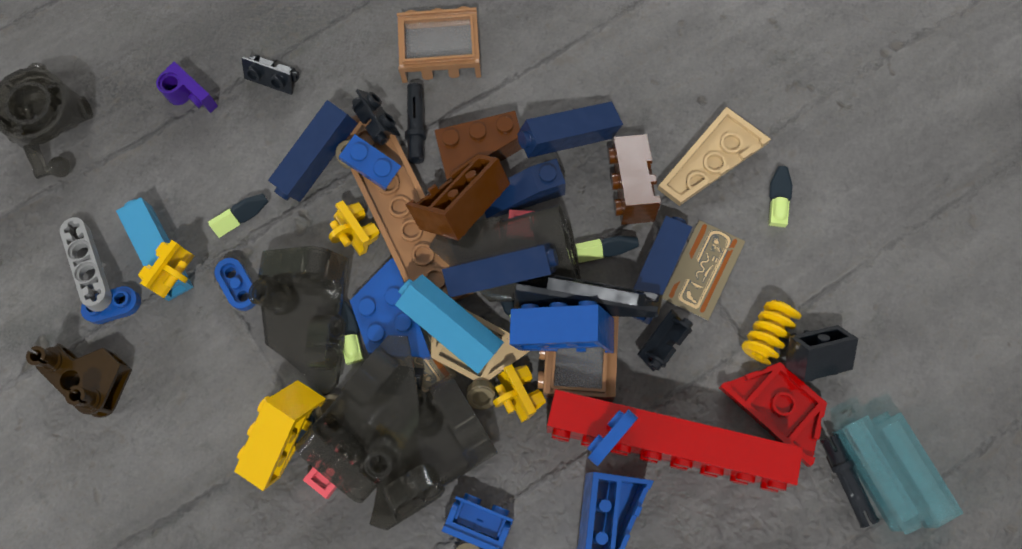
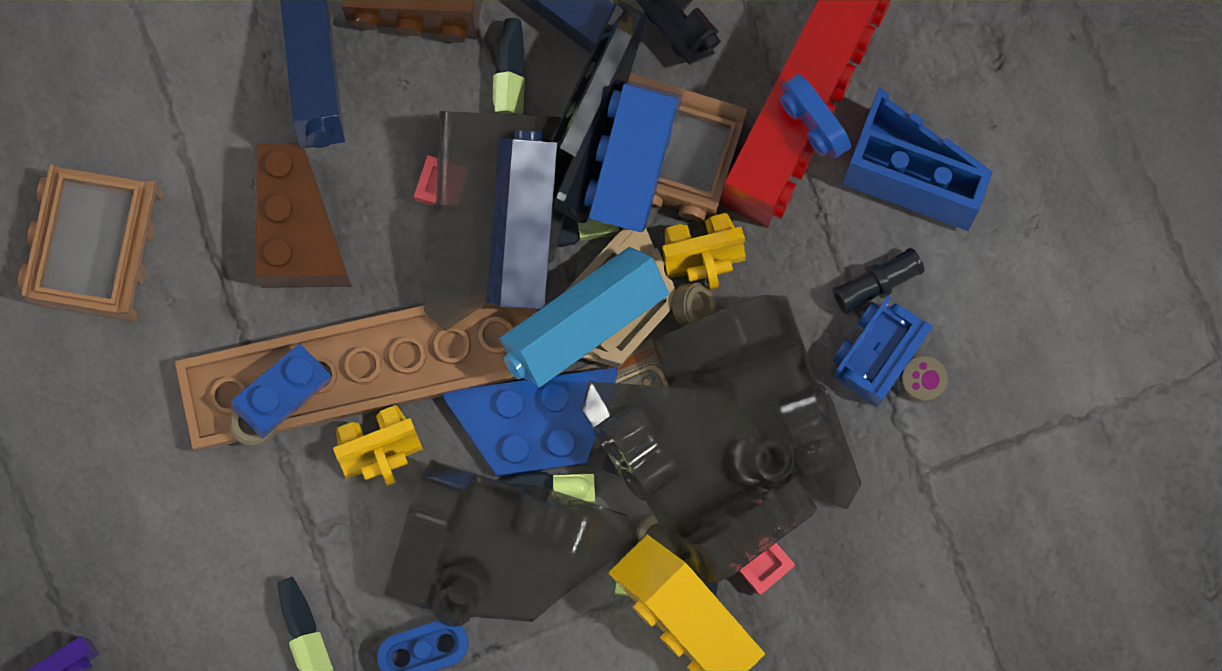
camera: 85 degrees left, 5 degrees up
(264, 73) = (50, 554): black hinge -> none
(312, 152) = (235, 482): dark blue brick -> none
(369, 107) = (183, 372): black hinge -> none
(415, 133) = (239, 316): black pin -> none
(462, 199) = (389, 258): reddish brown wedge -> none
(526, 512) = (878, 280): none -> black pin
(530, 188) = (385, 169): dark blue slope -> none

